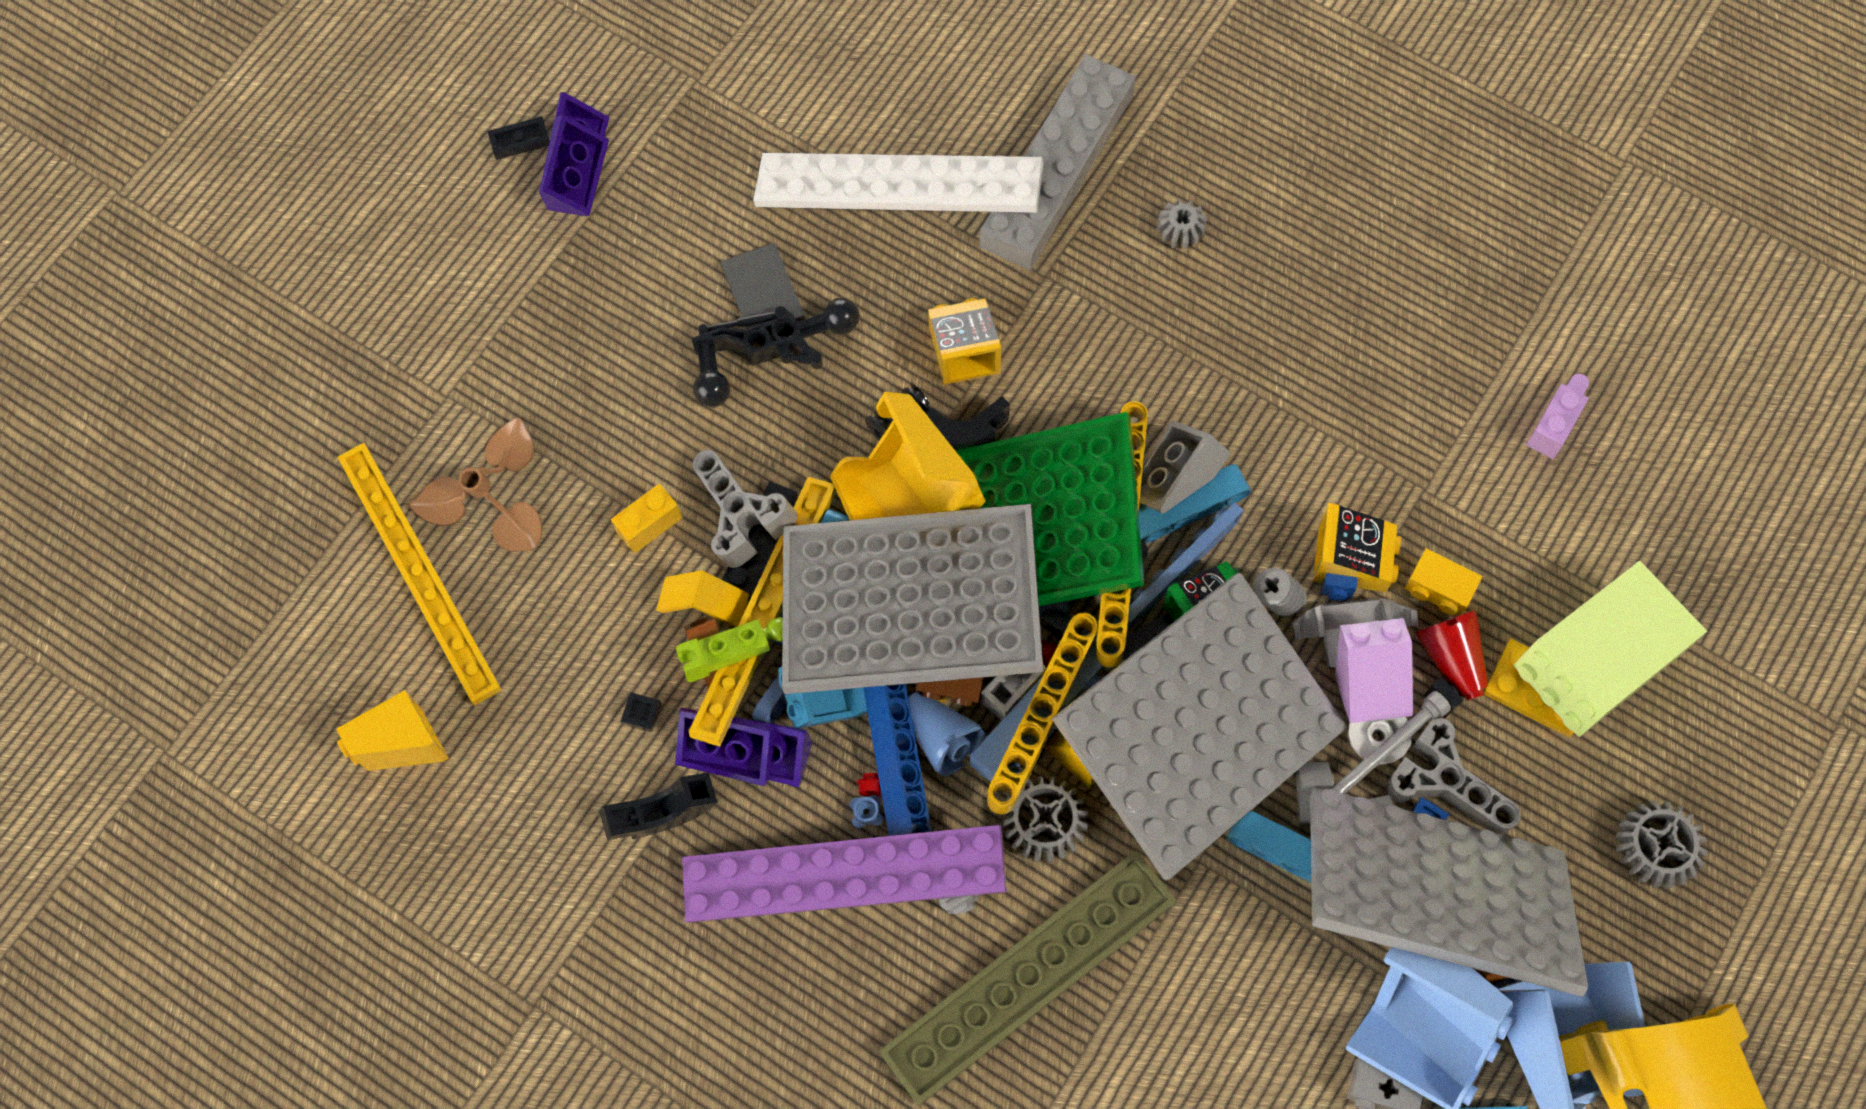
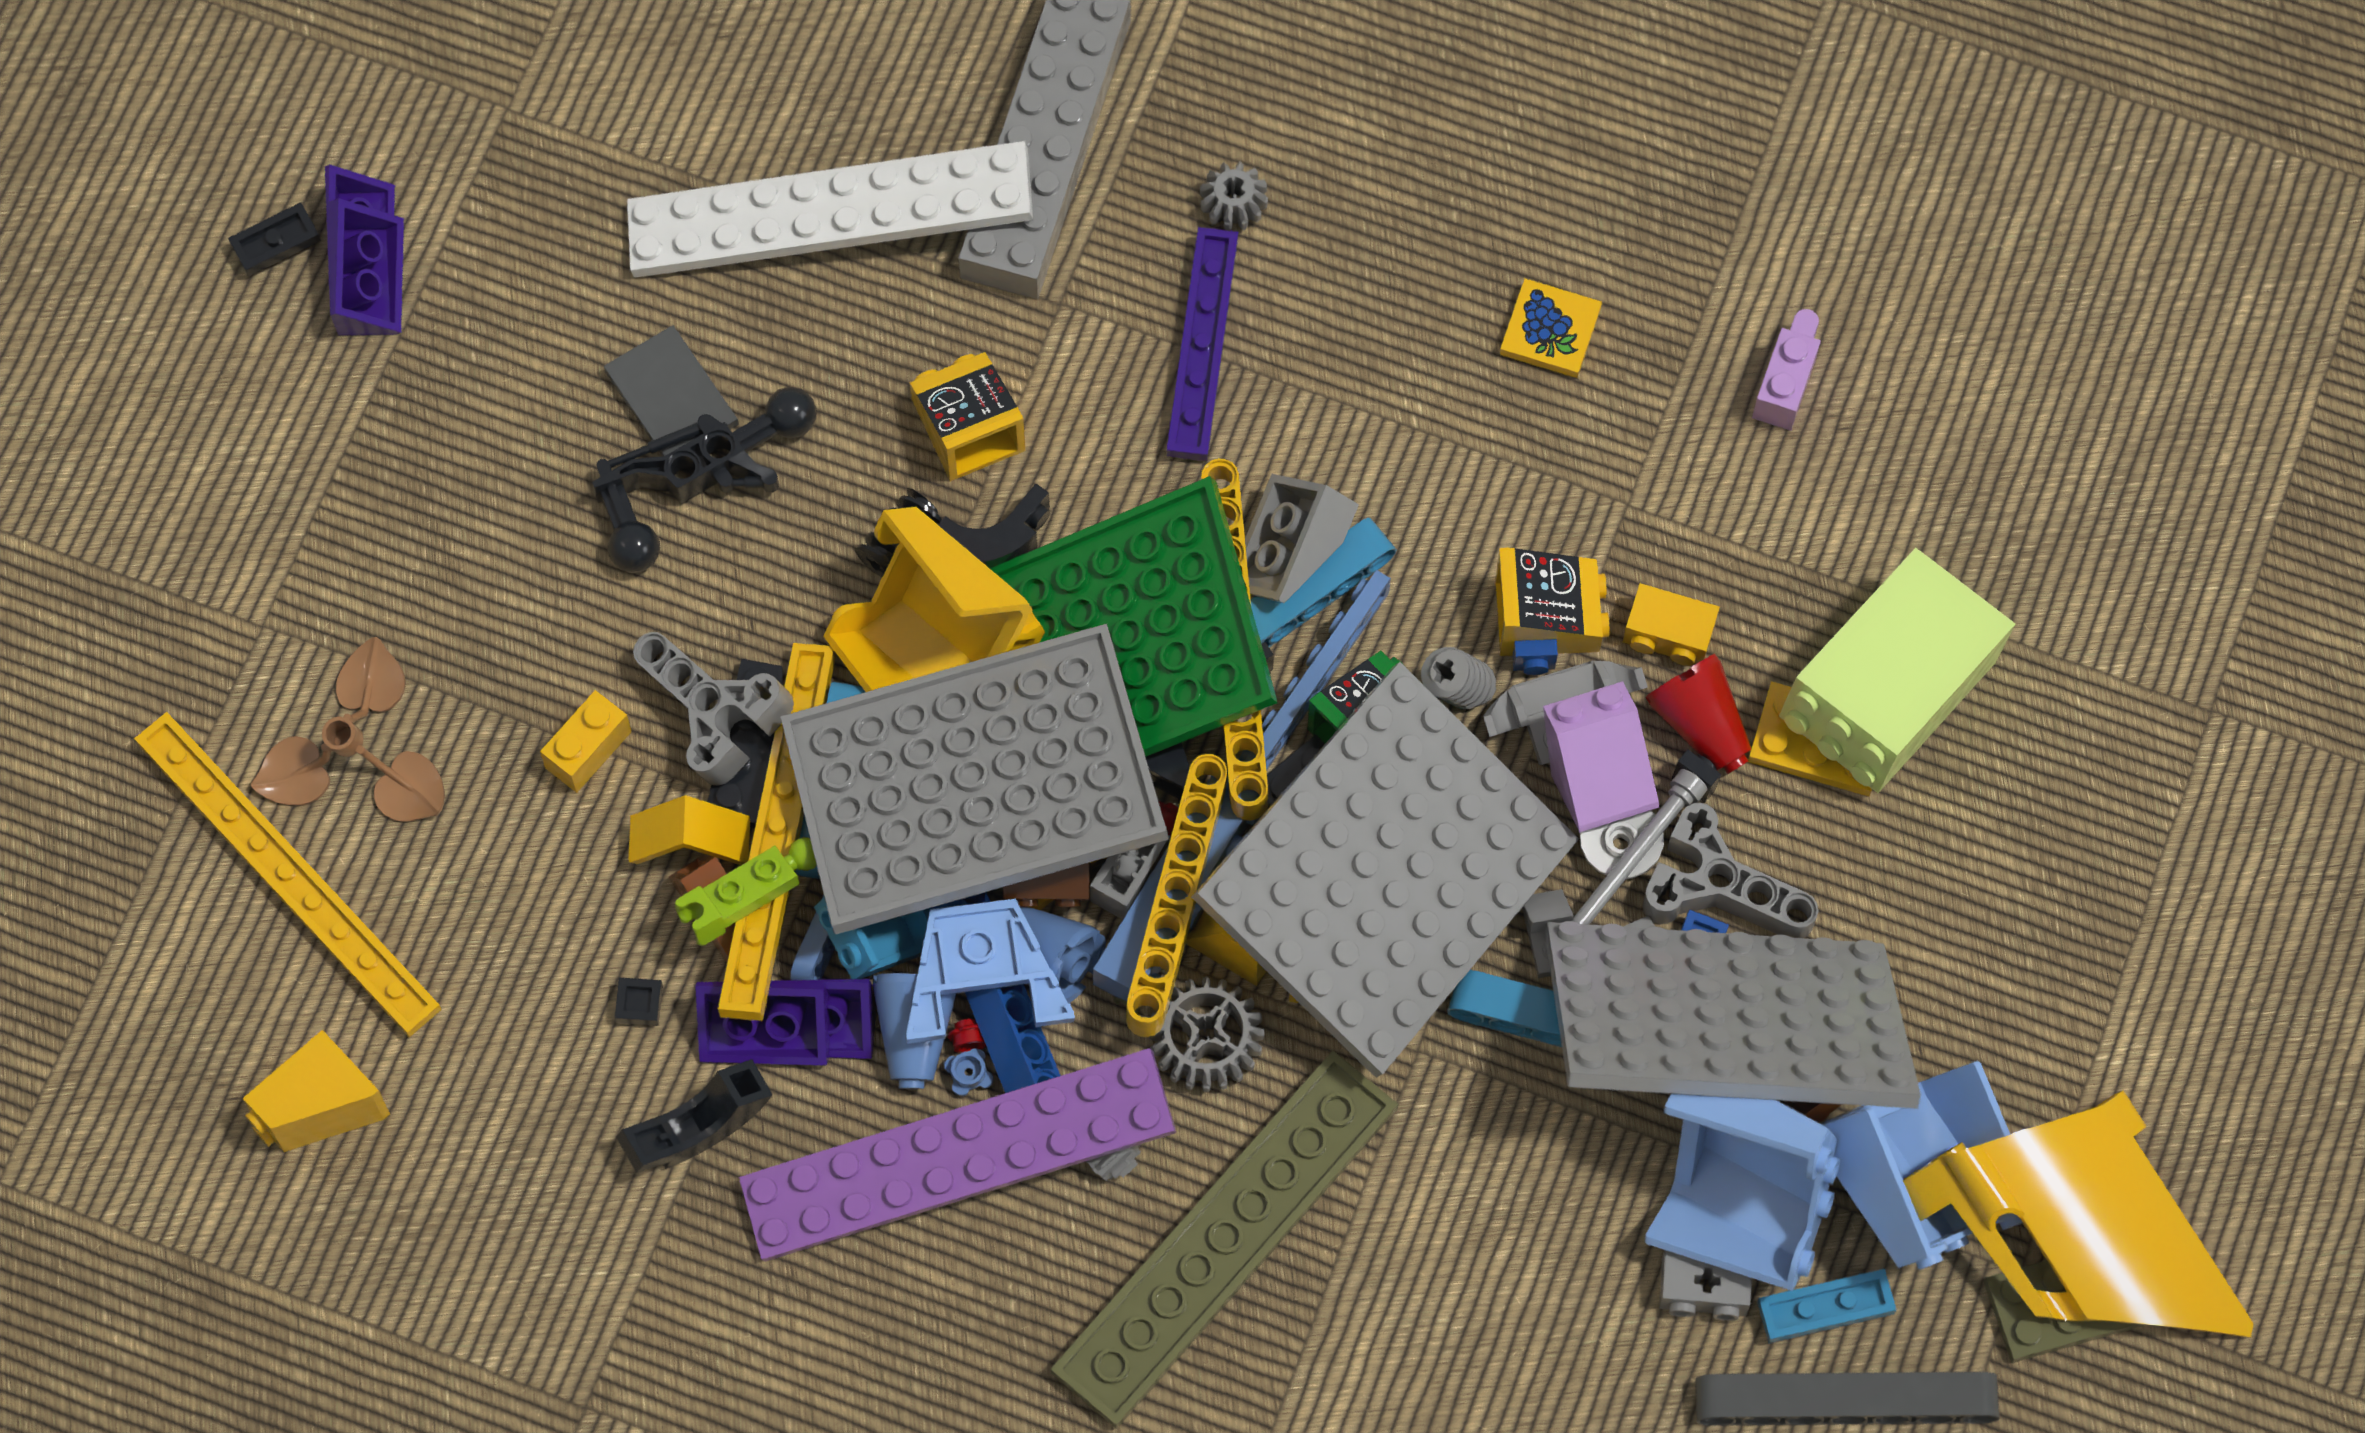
camera: 15 degrees left, 0 degrees up
(832, 769) = (906, 1062): none -> medium blue cone
(888, 725) = (980, 950): none -> light blue wing
(1139, 322) = (1202, 344): none -> dark purple plate
(1390, 355) = (1550, 328): none -> yellow tile
(1687, 854) = (2019, 916): light grey gear -> none

